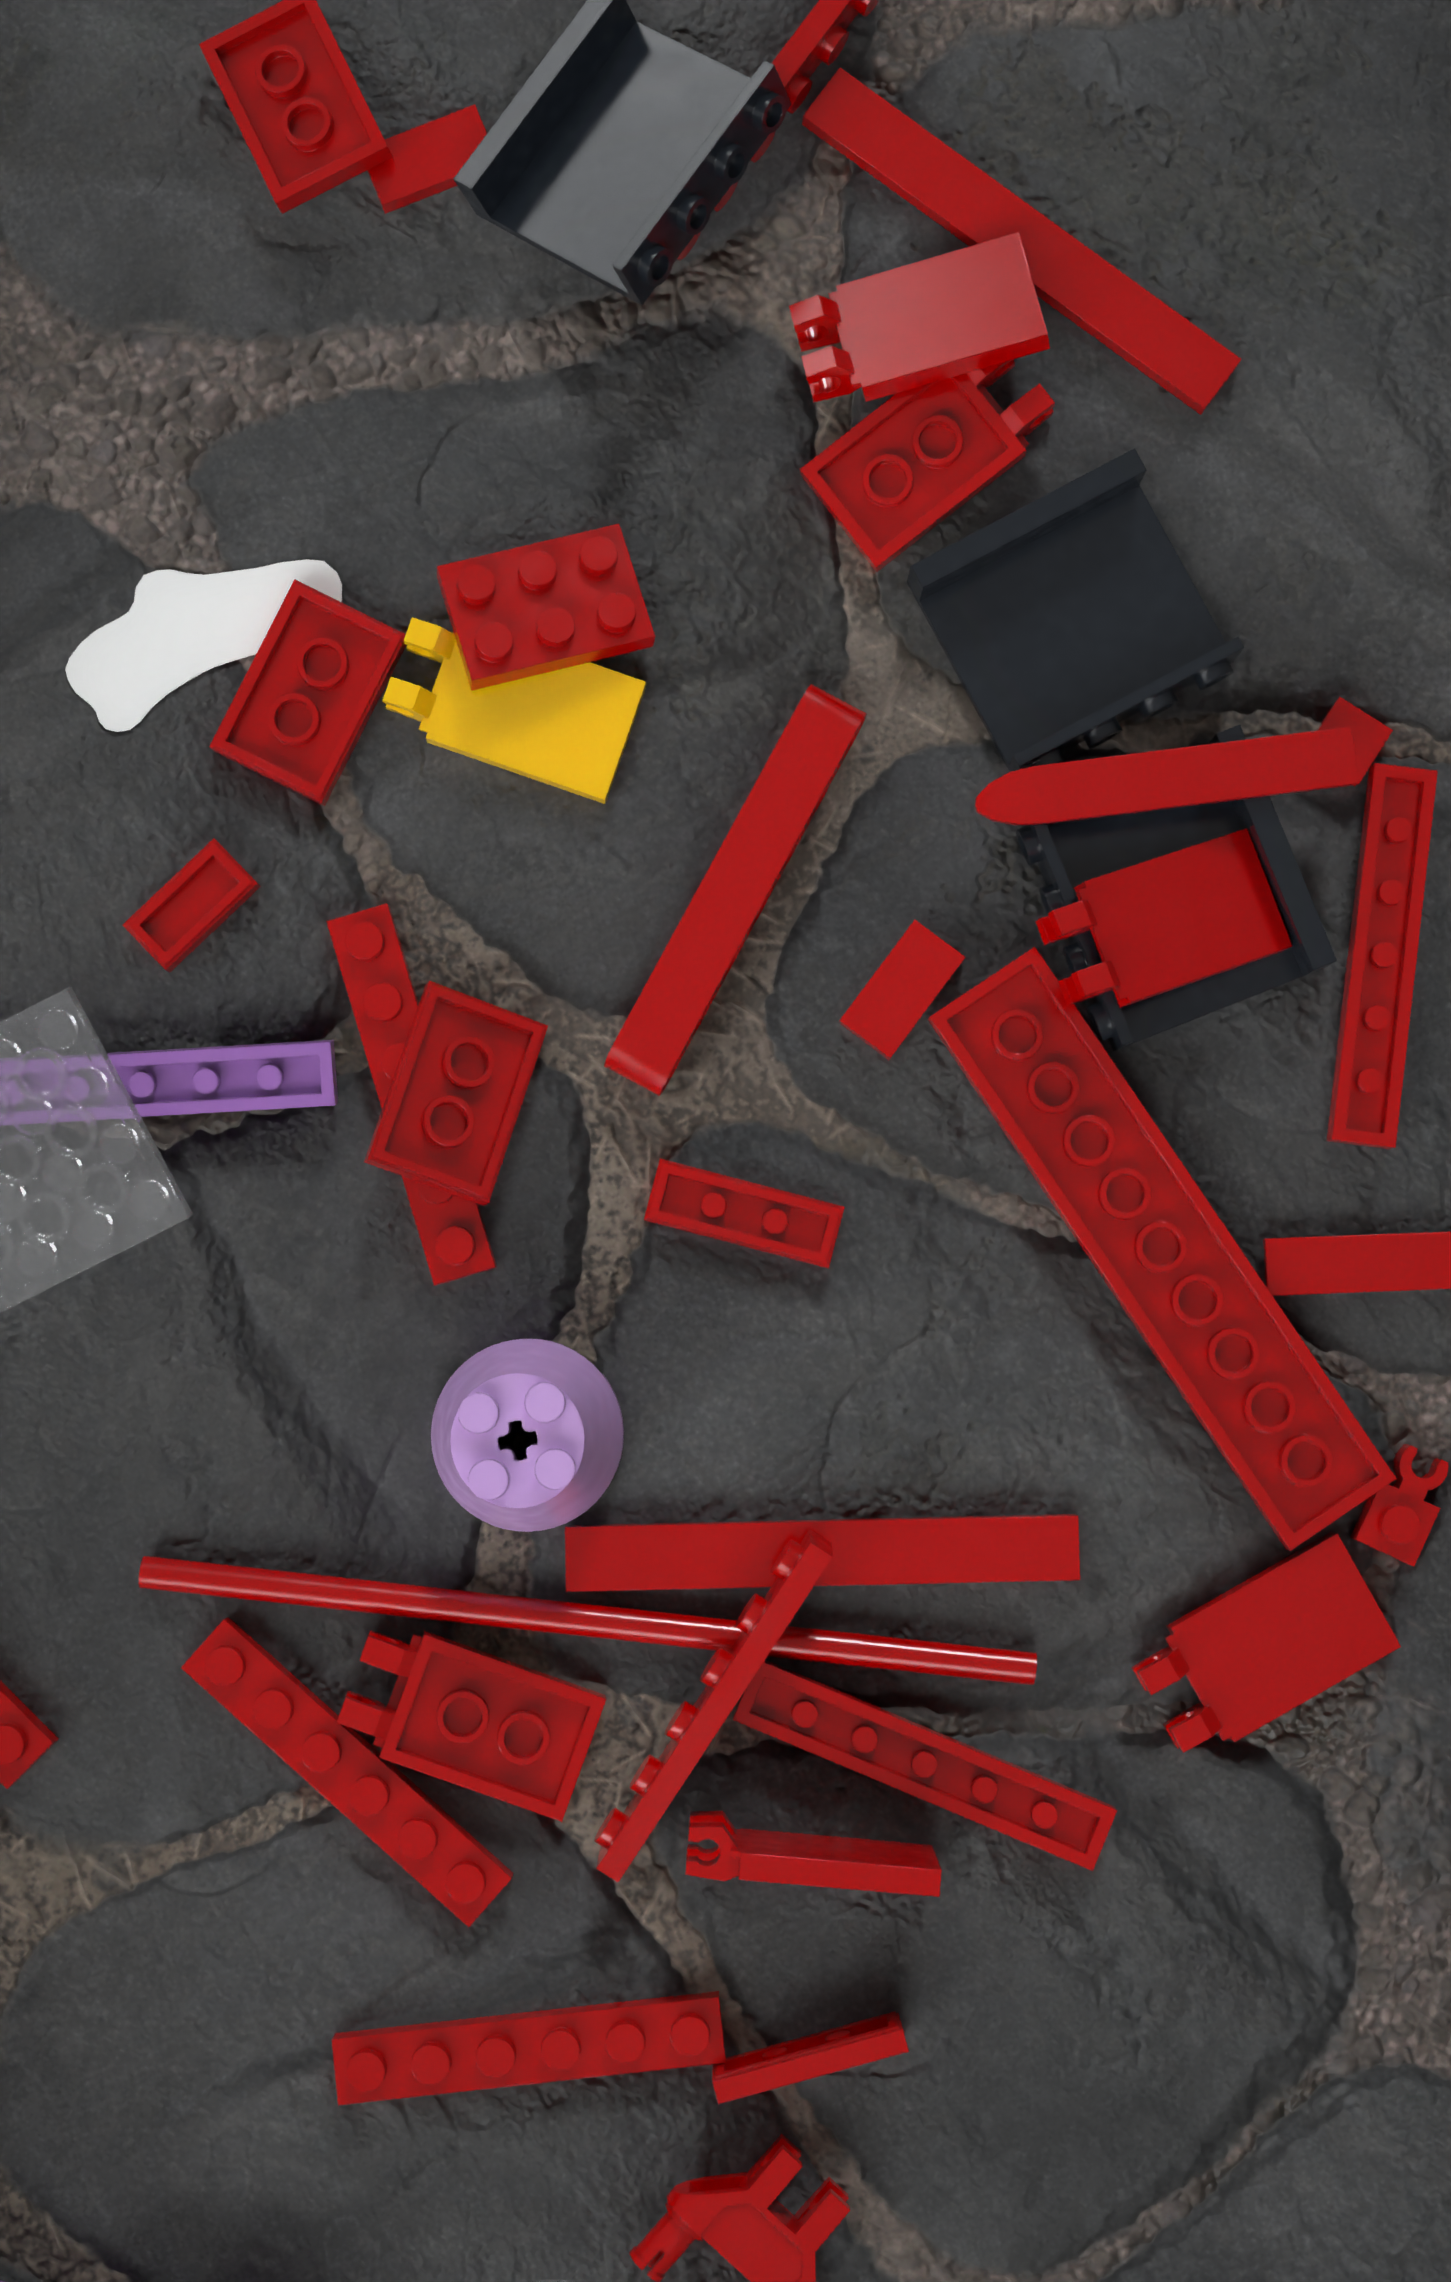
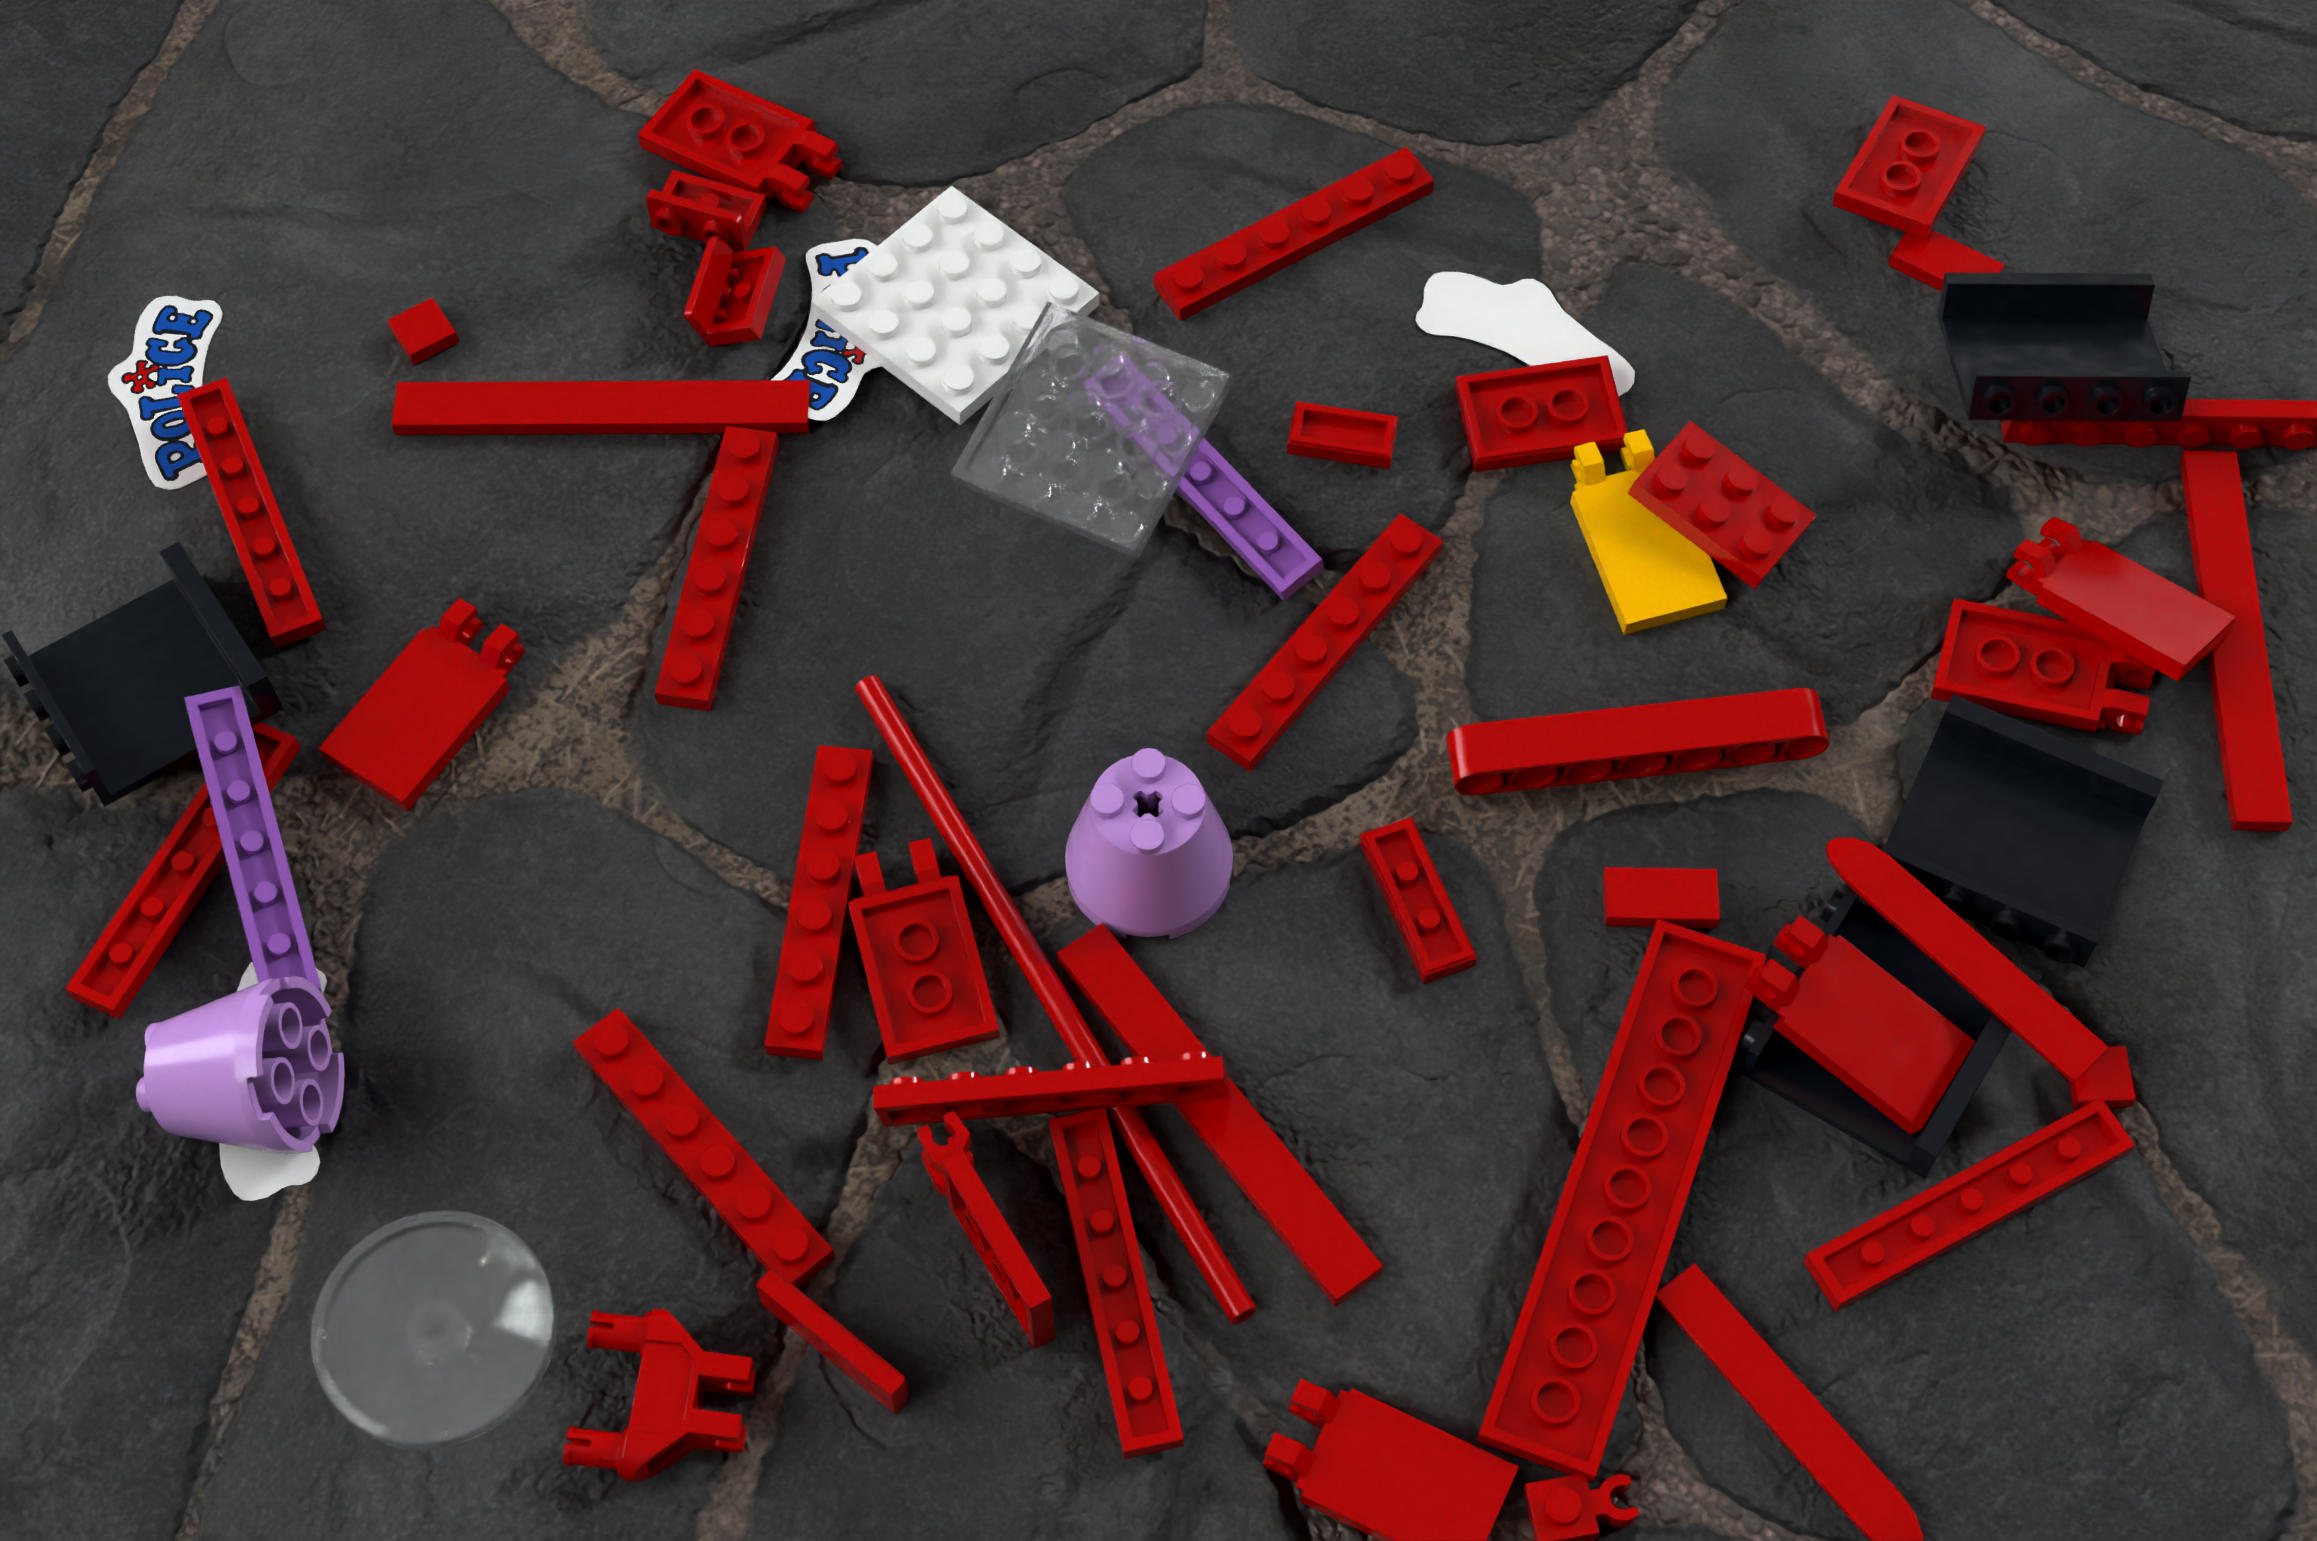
camera: 55 degrees right, 25 degrees down
(456, 1093) = (1350, 656): red tile -> none

